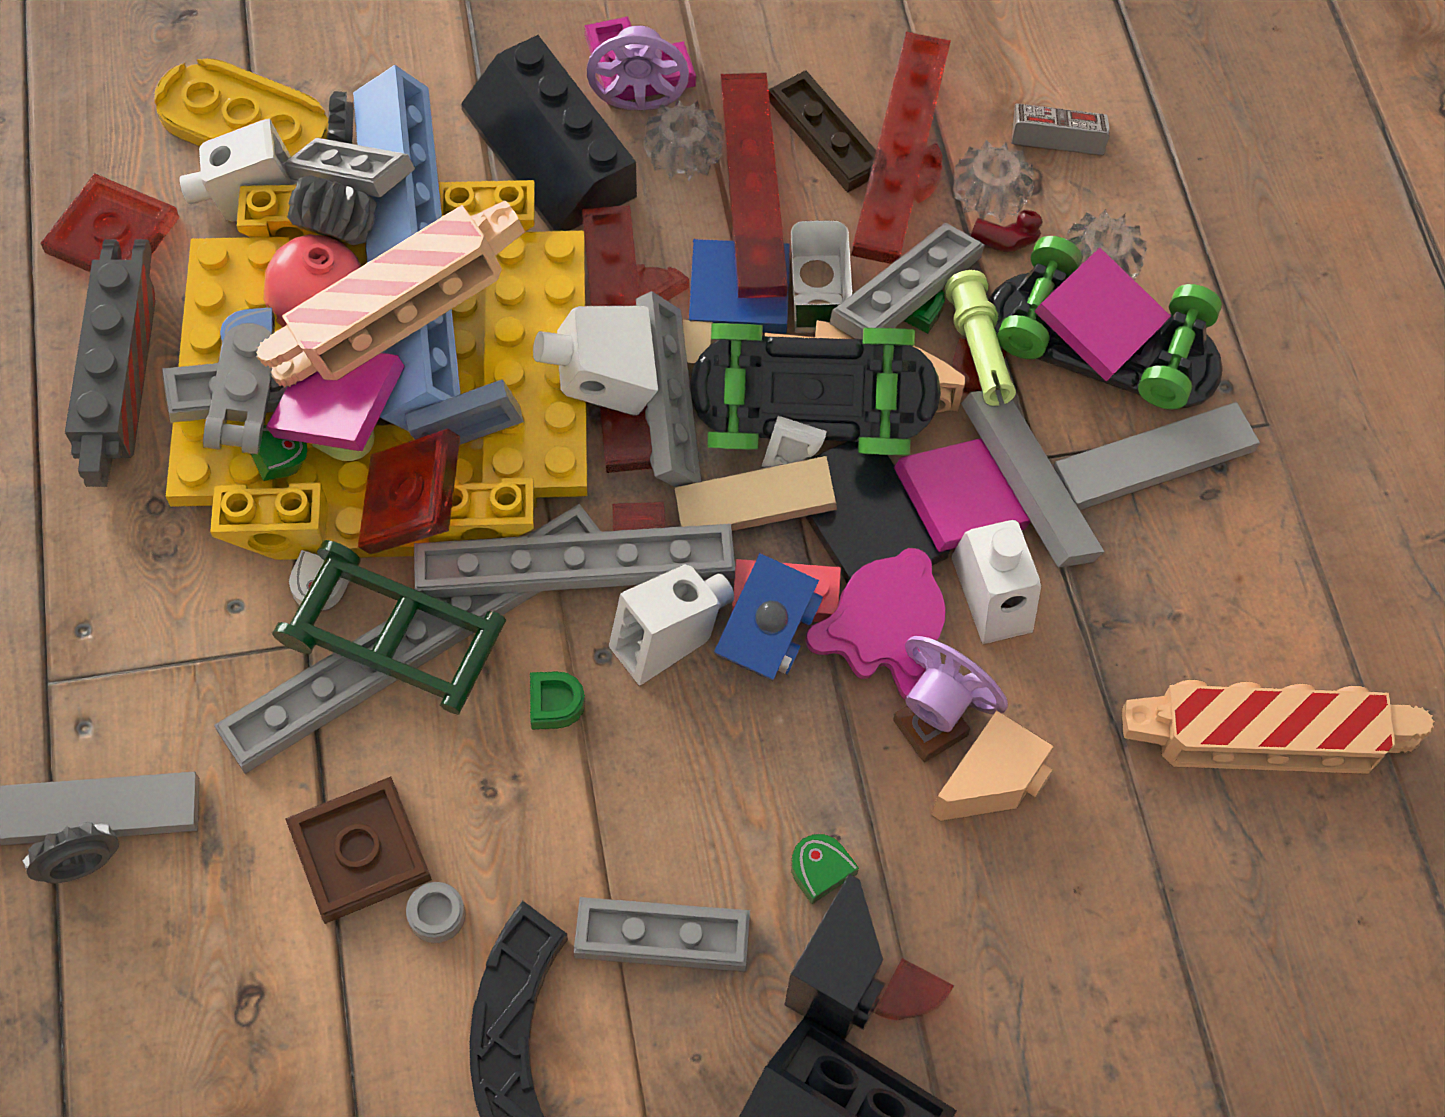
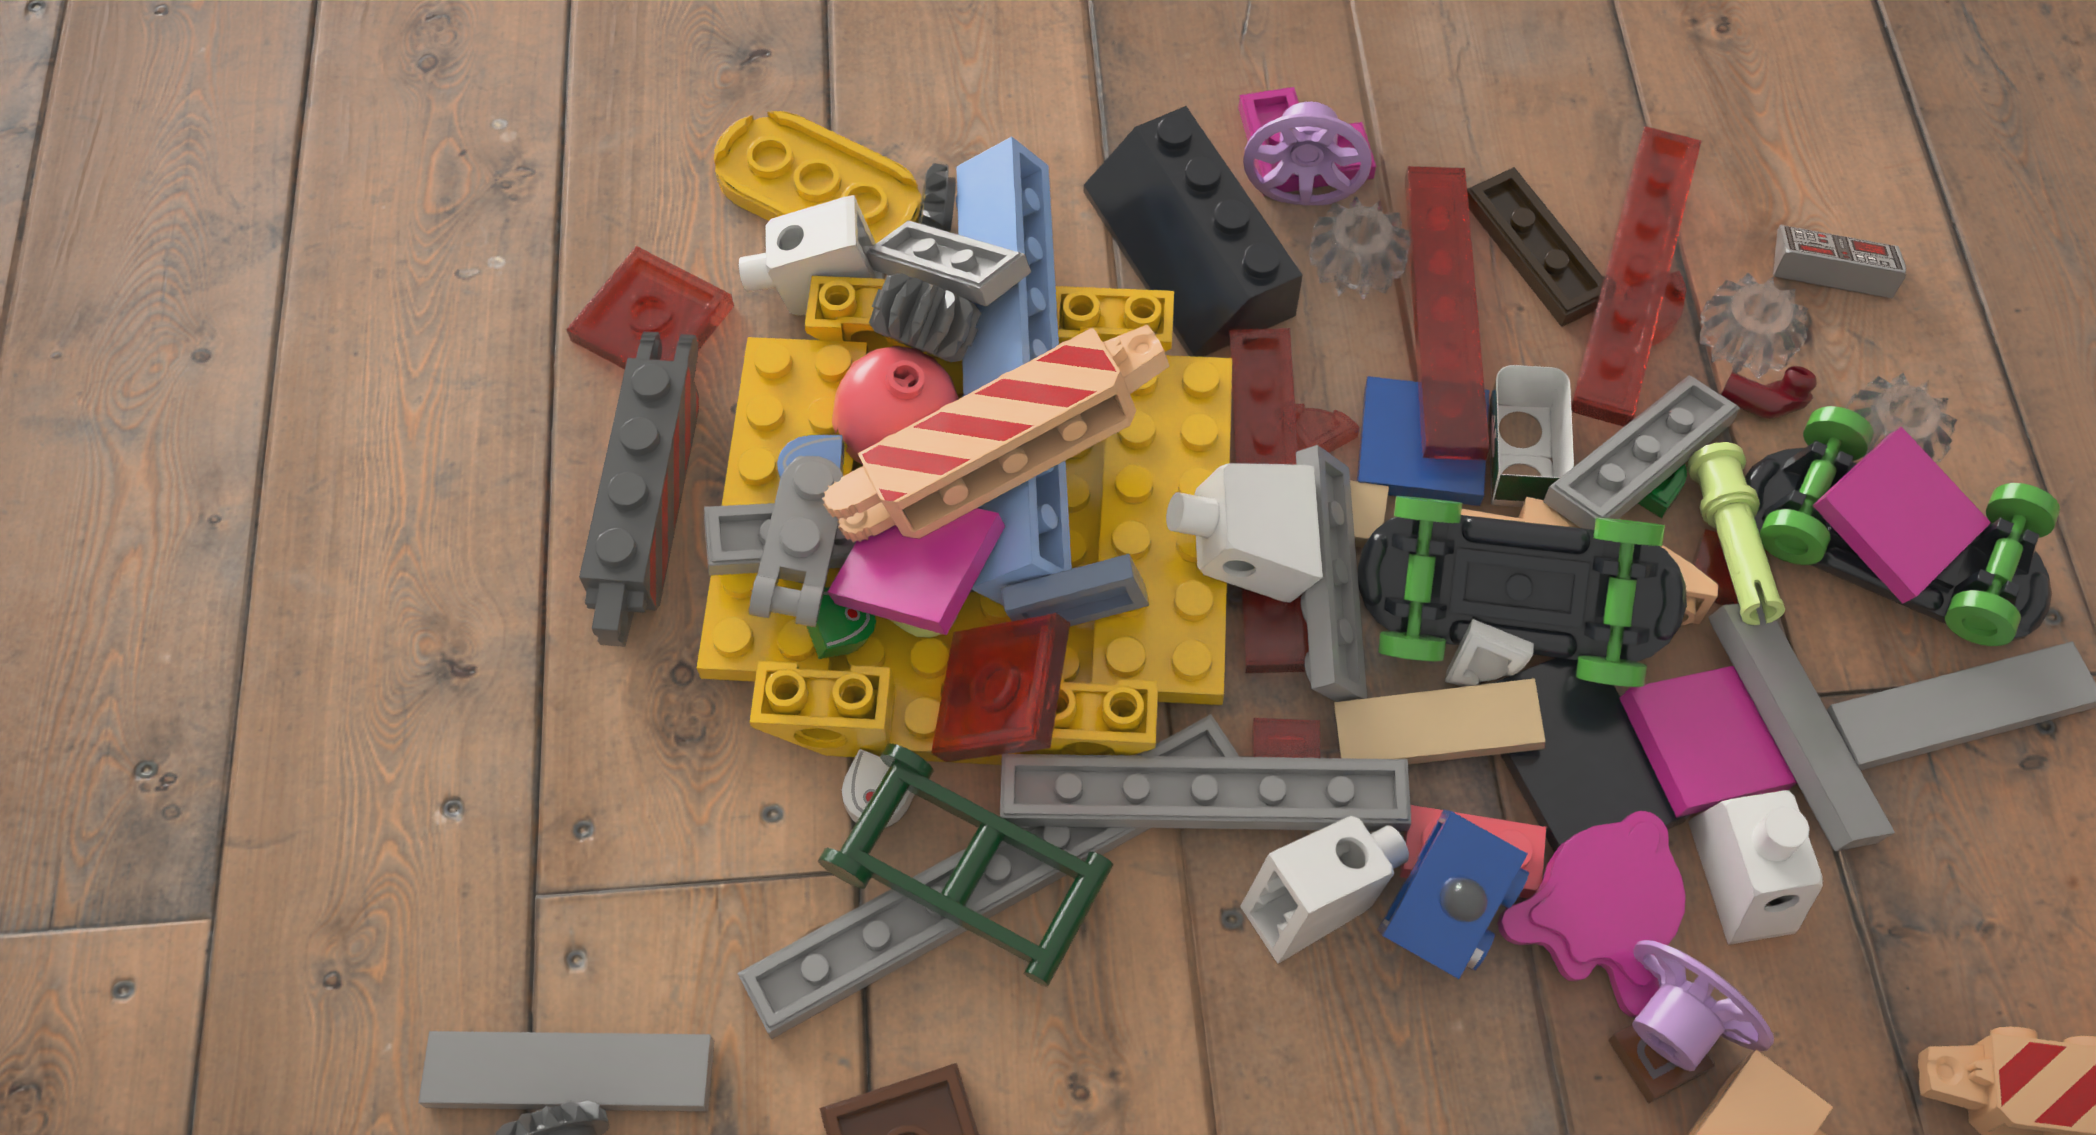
camera: 10 degrees right, 0 degrees up
(555, 700) = (1170, 975): green tile -> none

